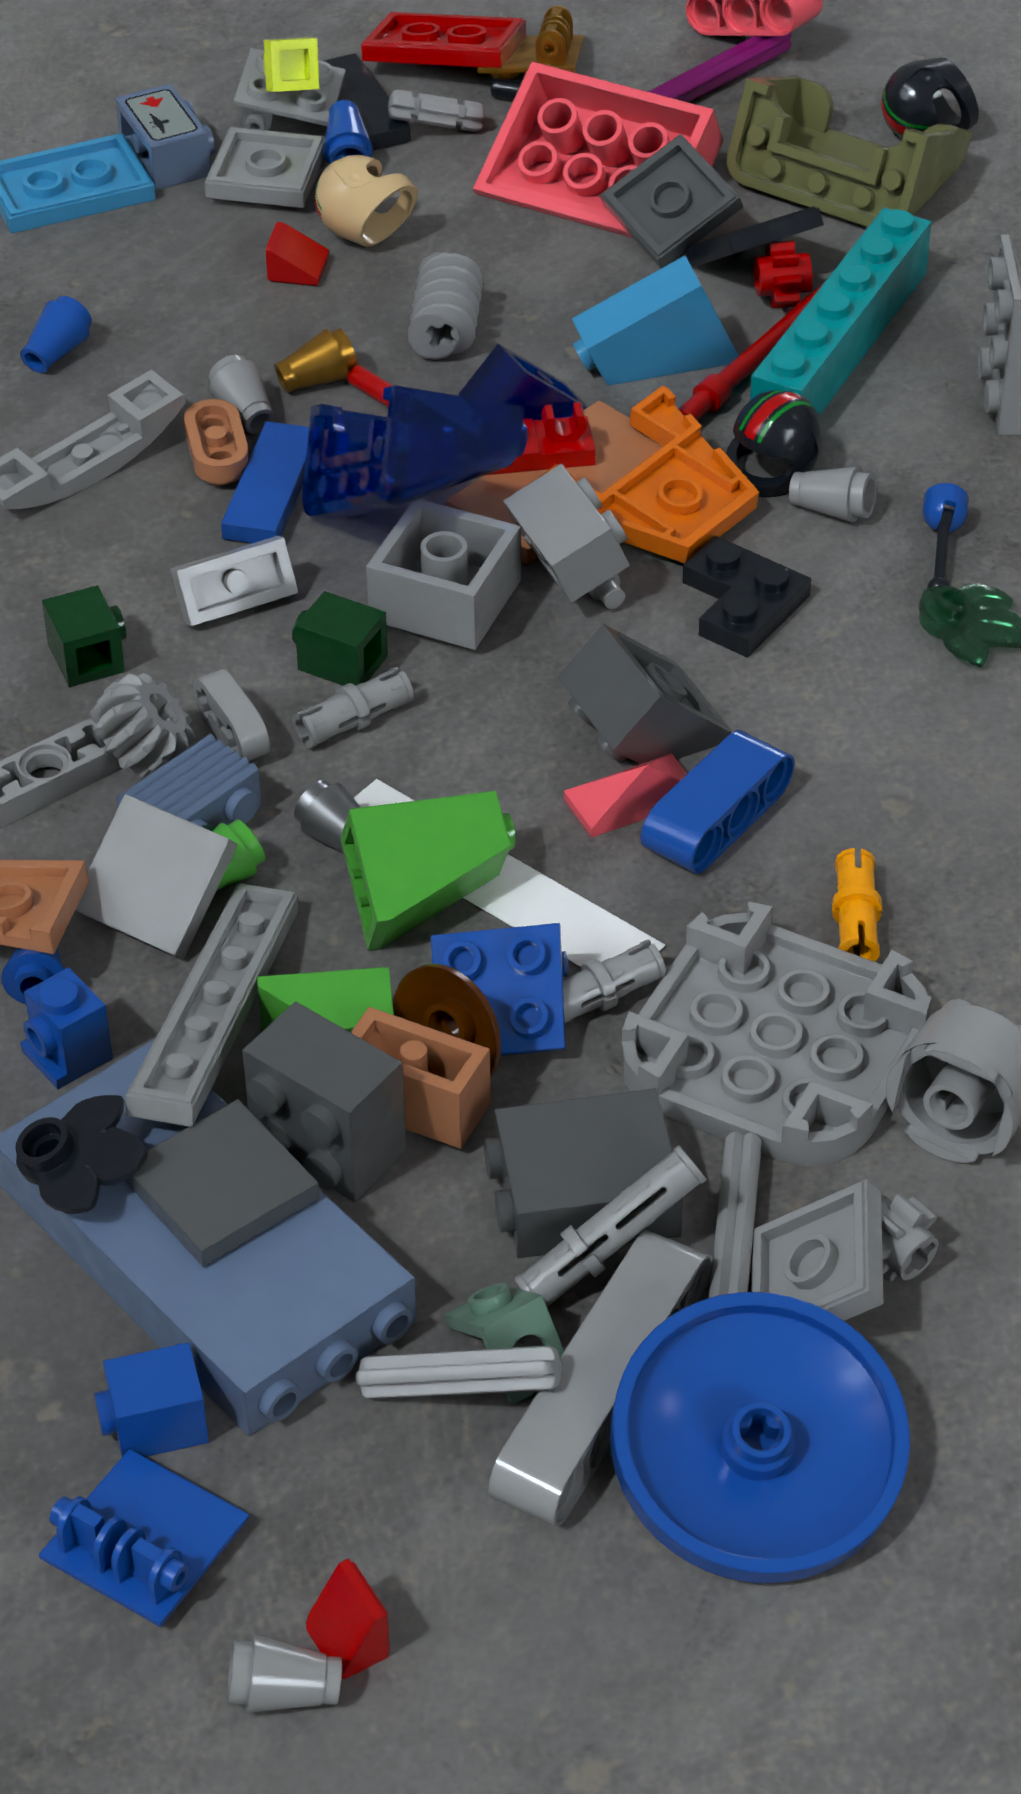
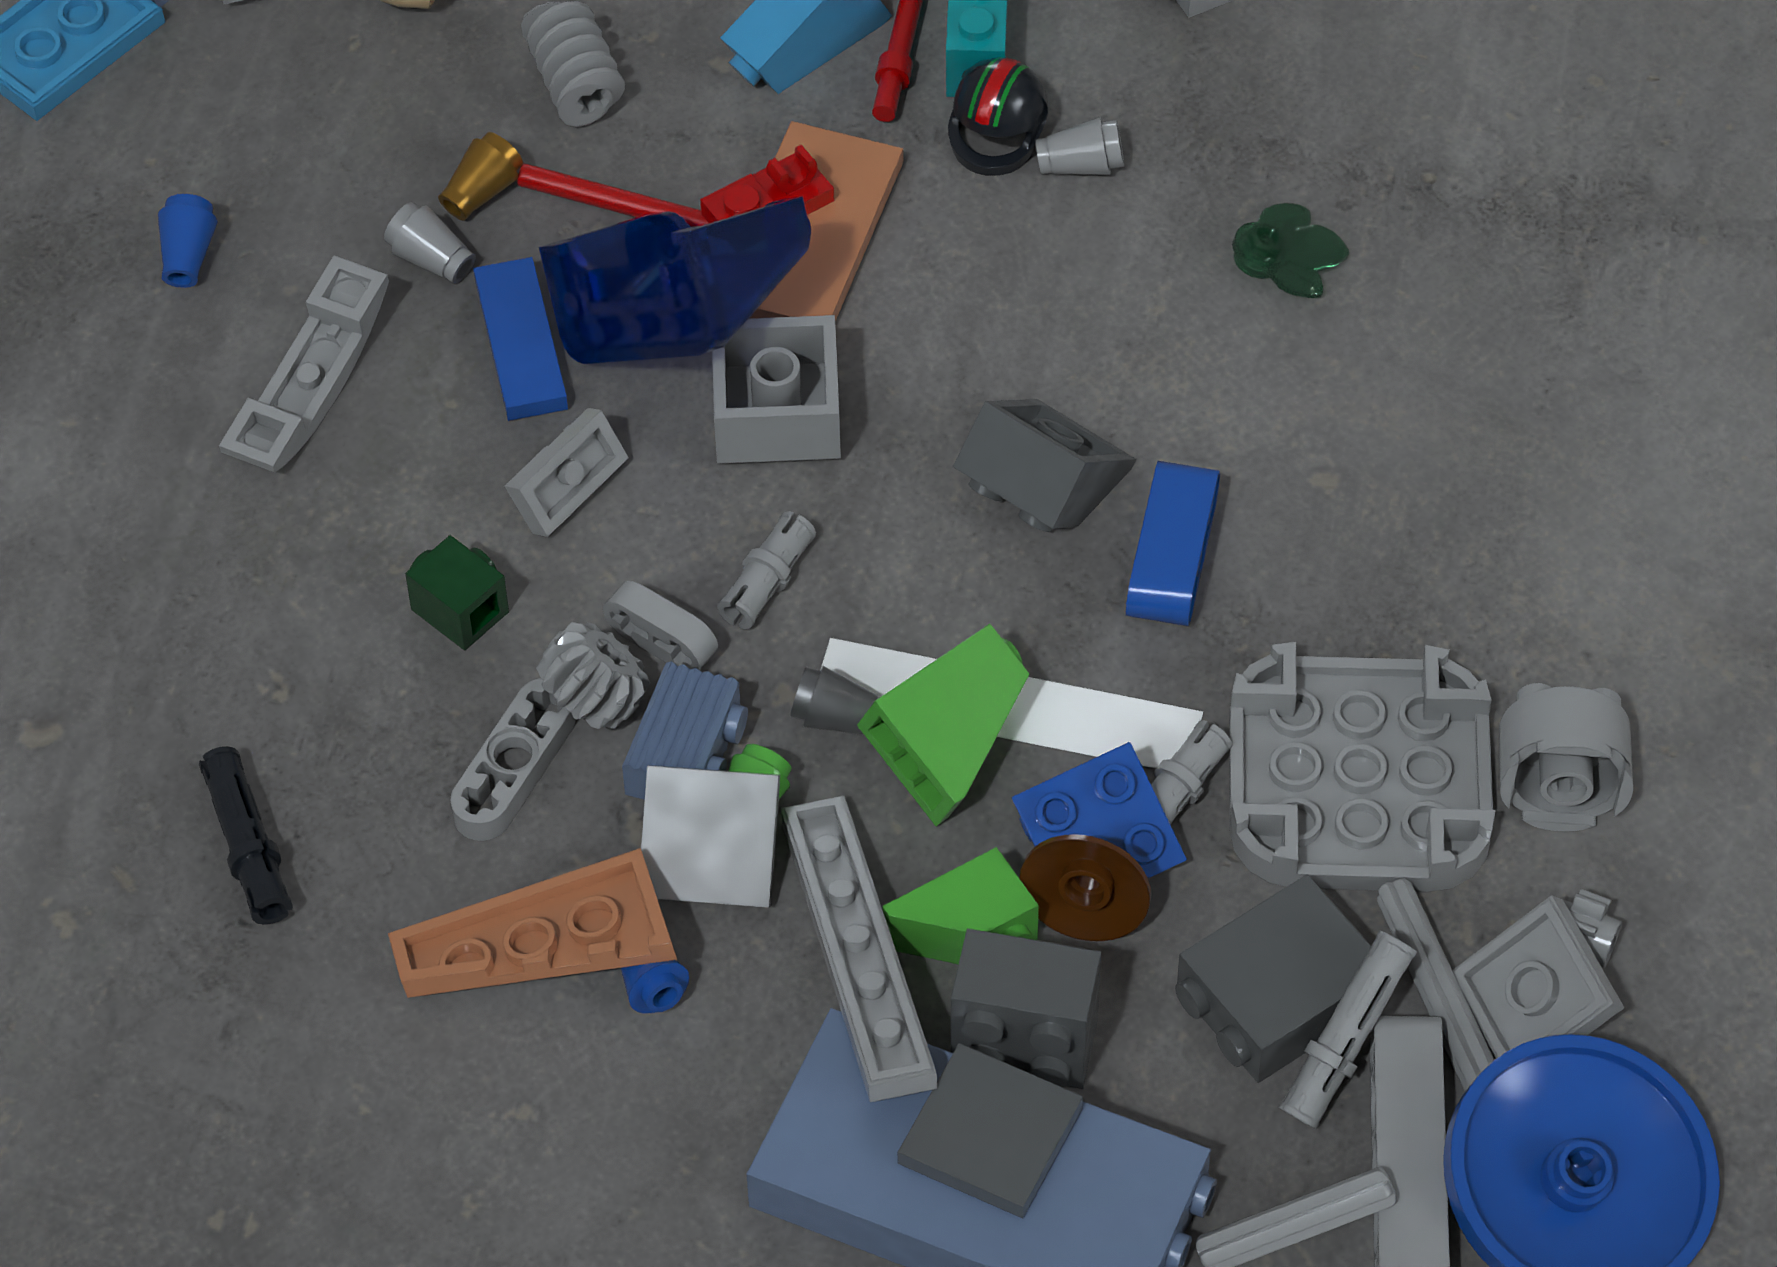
camera: 25 degrees left, 10 degrees up
(65, 1028) = (726, 1028): blue brick -> none
(79, 1154) = (866, 1156): black plate -> none
(216, 441) = (443, 313): nougat plate -> none
(294, 257) = (371, 50): red slope -> none
(340, 640) = (712, 501): dark green brick -> none
(442, 1075) = (1112, 926): nougat slope -> none
(503, 1316) = (1296, 1151): sand green bracket -> none
(516, 381) = (716, 148): clear blue slope -> none
(571, 536) = (880, 303): light grey brick -> none
(624, 795) = (1080, 563): coral slope -> none
(680, 491) = (935, 215): orange wing -> none
(750, 591) = (1066, 286): black plate -> none
(857, 904) = (1356, 604): light orange pin -> none
(944, 520) = (1198, 132): blue hinge -> none

